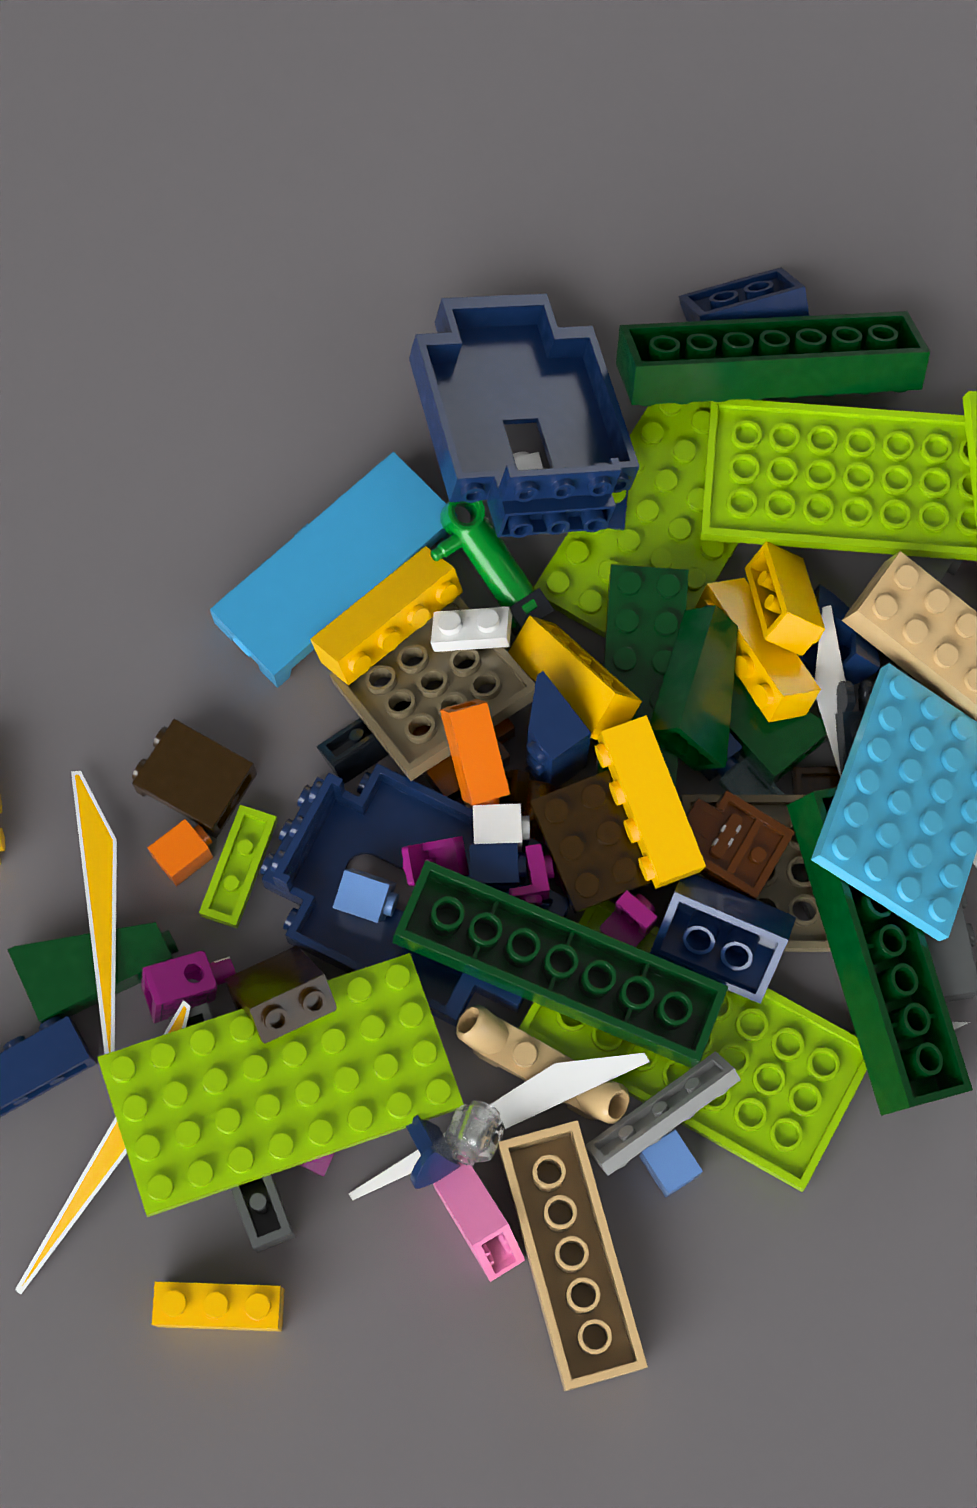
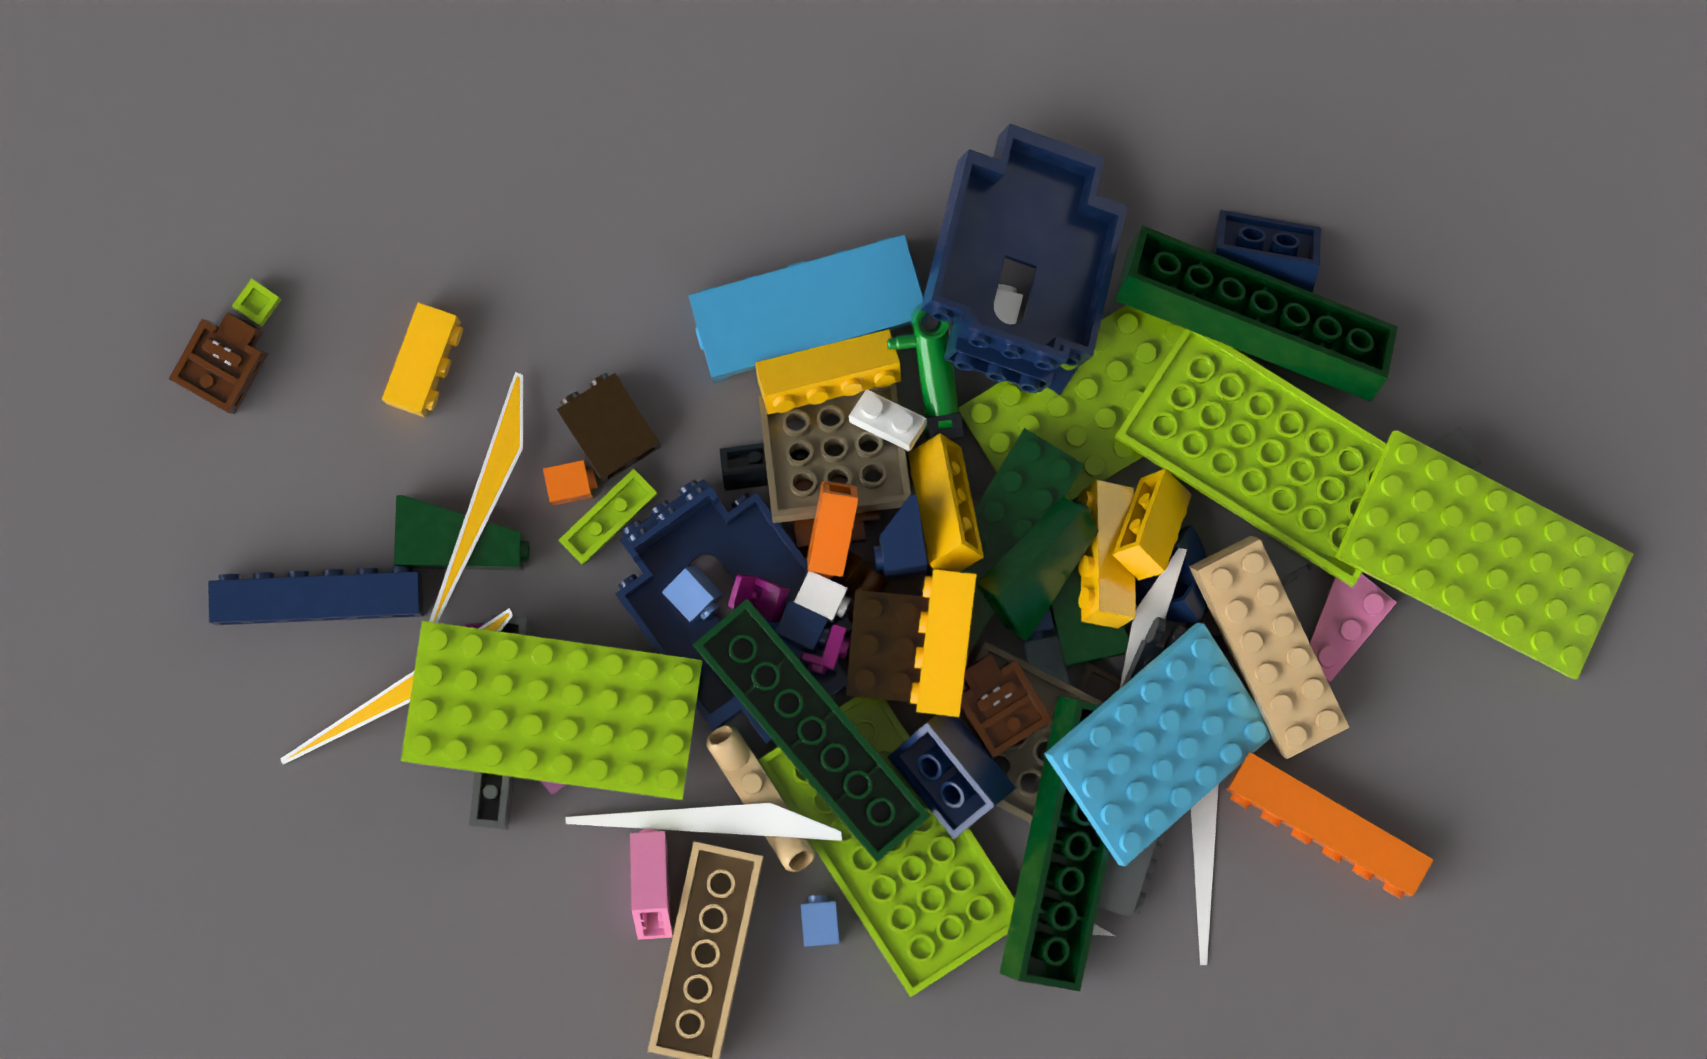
camera: 30 degrees right, 10 degrees up
(168, 985) = (504, 586): magenta torso -> none
(218, 1306) = (424, 852): yellow brick -> none
(281, 993) = (587, 641): dark brown panel -> none
(435, 1157) = (642, 822): dark blue tile -> none
(474, 1132) = (679, 824): clear head -> none
(630, 920) = (885, 723): magenta bracket -> none
(662, 1113) = (831, 883): light grey plate -> none

